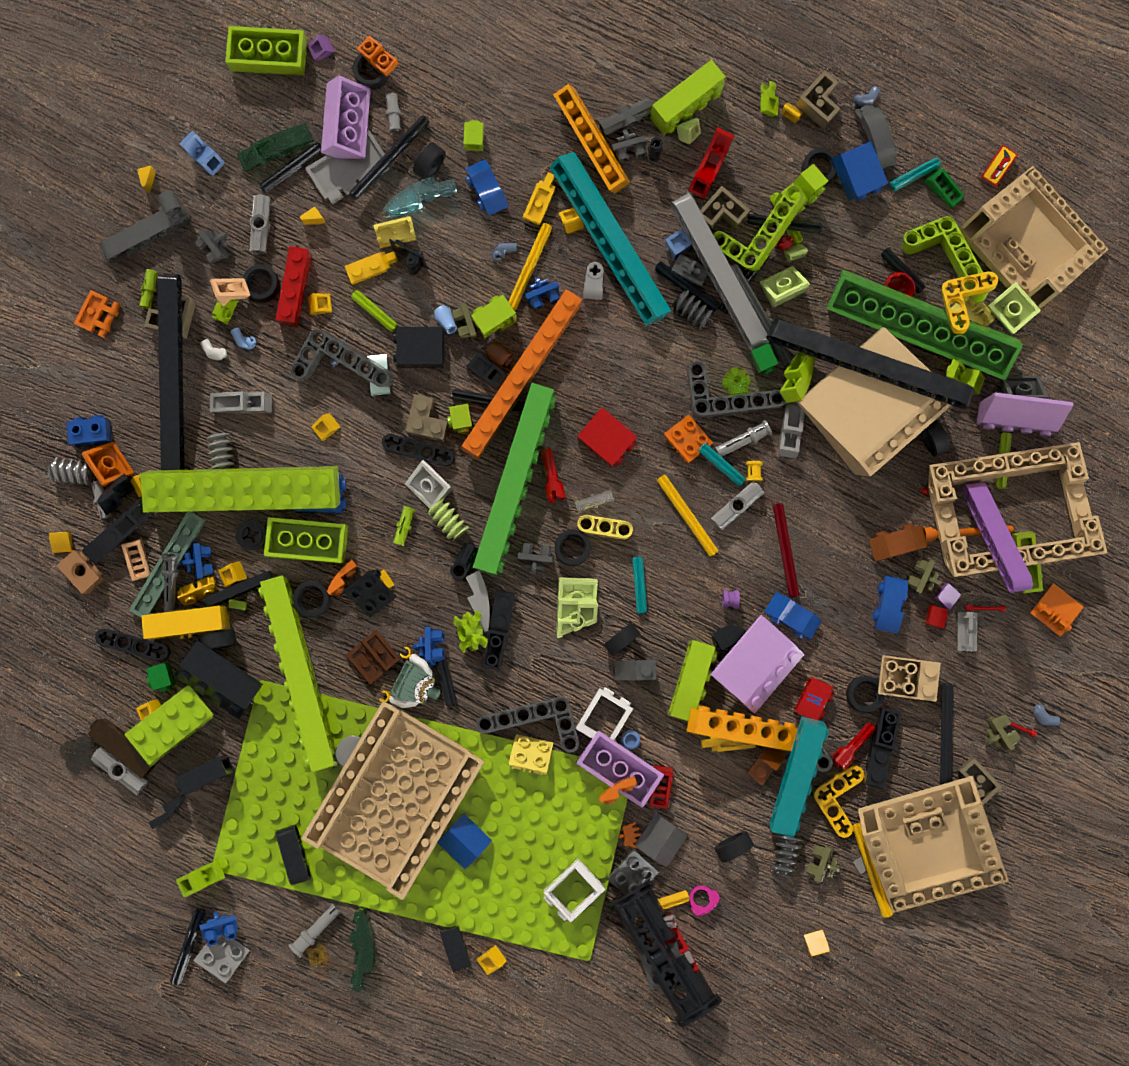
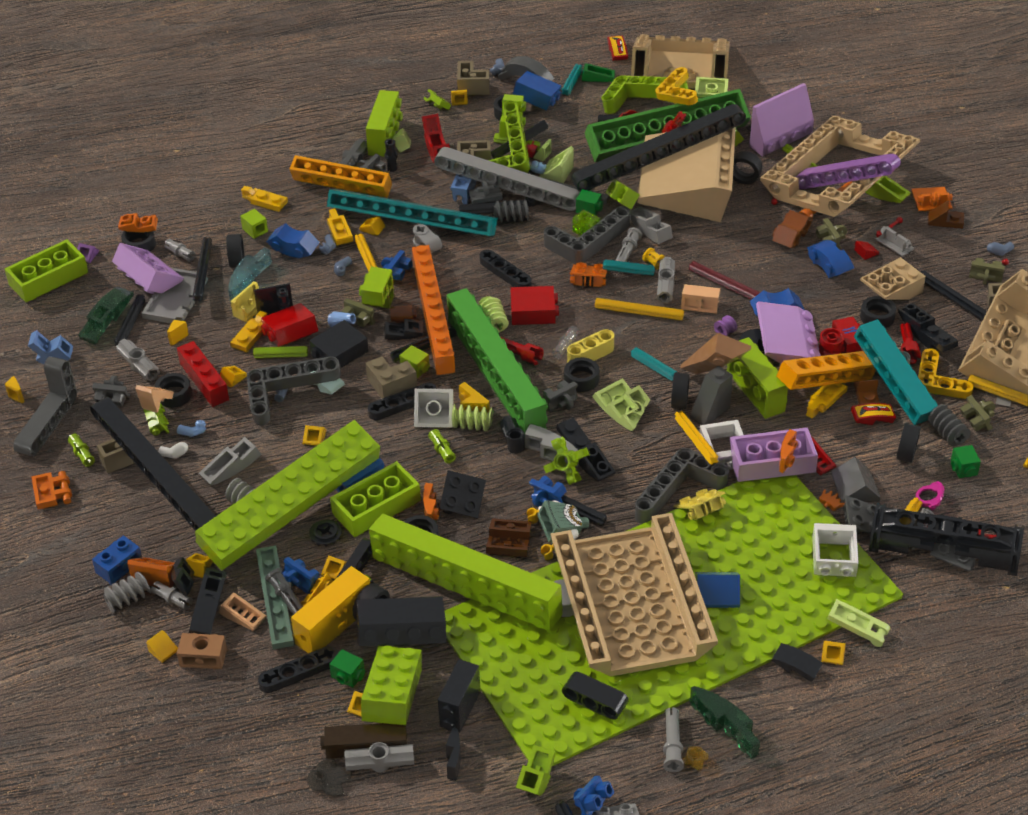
camera: 40 degrees left, 40 degrees down
(399, 290) = (289, 324): none -> red brick
(465, 506) = (471, 397): none -> yellow slope
(514, 105) = (264, 198): none -> yellow hinge
(516, 215) = (329, 245): none -> sand blue arm
(527, 958) = (858, 622): none -> yellowish green plate
(564, 422) = (494, 310): none -> yellowish green piece
(586, 696) = (696, 437): none -> yellow axle
(626, 373) = (490, 259): none -> black beam
(664, 649) = (716, 352): none -> medium nougat wedge
(744, 550) = (700, 298): none -> light nougat hinge
(747, 788) = (871, 412): none -> slope
(760, 897) = (965, 461): none -> green brick
(765, 271) = (538, 167): none -> light blue arm
(786, 697) = (831, 342): none -> red wheel
(913, 342) = (673, 124): none -> red piece
(947, 596) = (857, 234): slope -> none
(1042, 642) = (943, 218): none -> reddish brown slope

